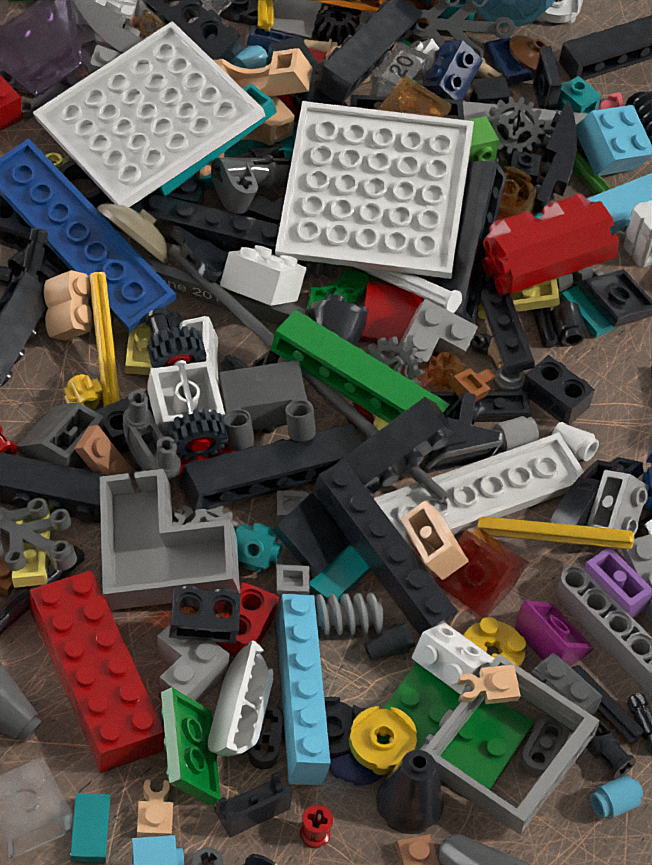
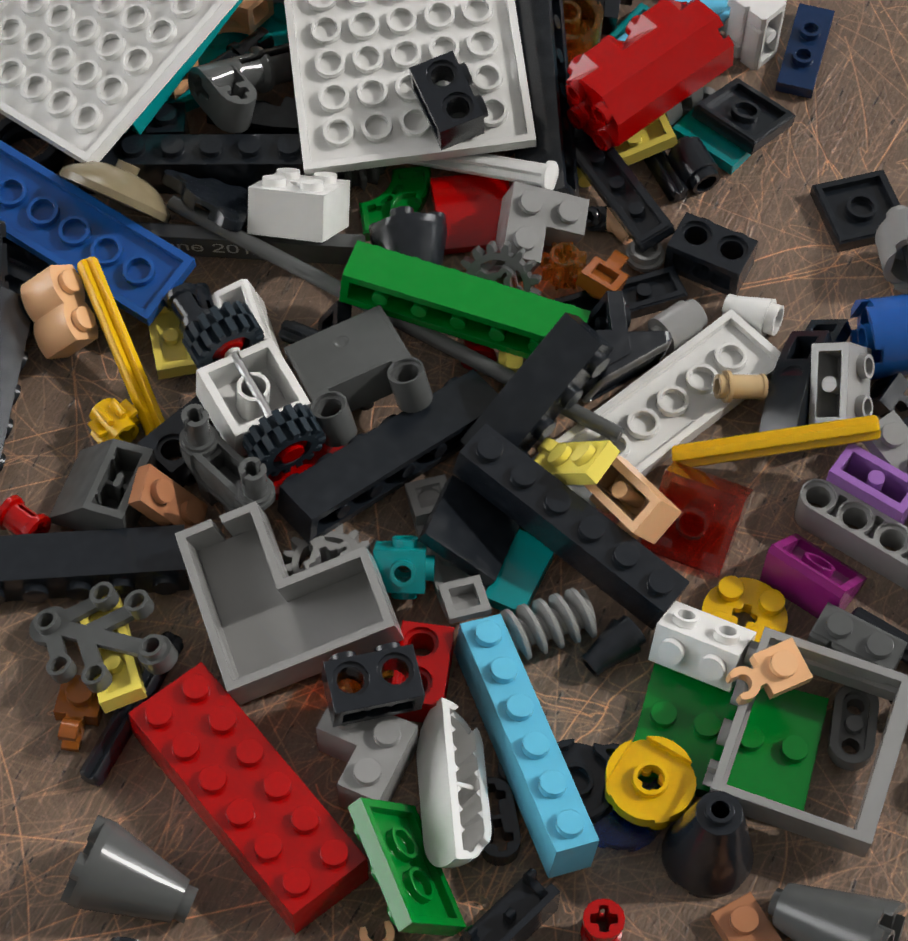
camera: 10 degrees left, 5 degrees up
(390, 228) = (442, 101): none -> black brick
(402, 504) = (576, 461): none -> light yellow plate
(544, 488) = (740, 386): none -> tan pin

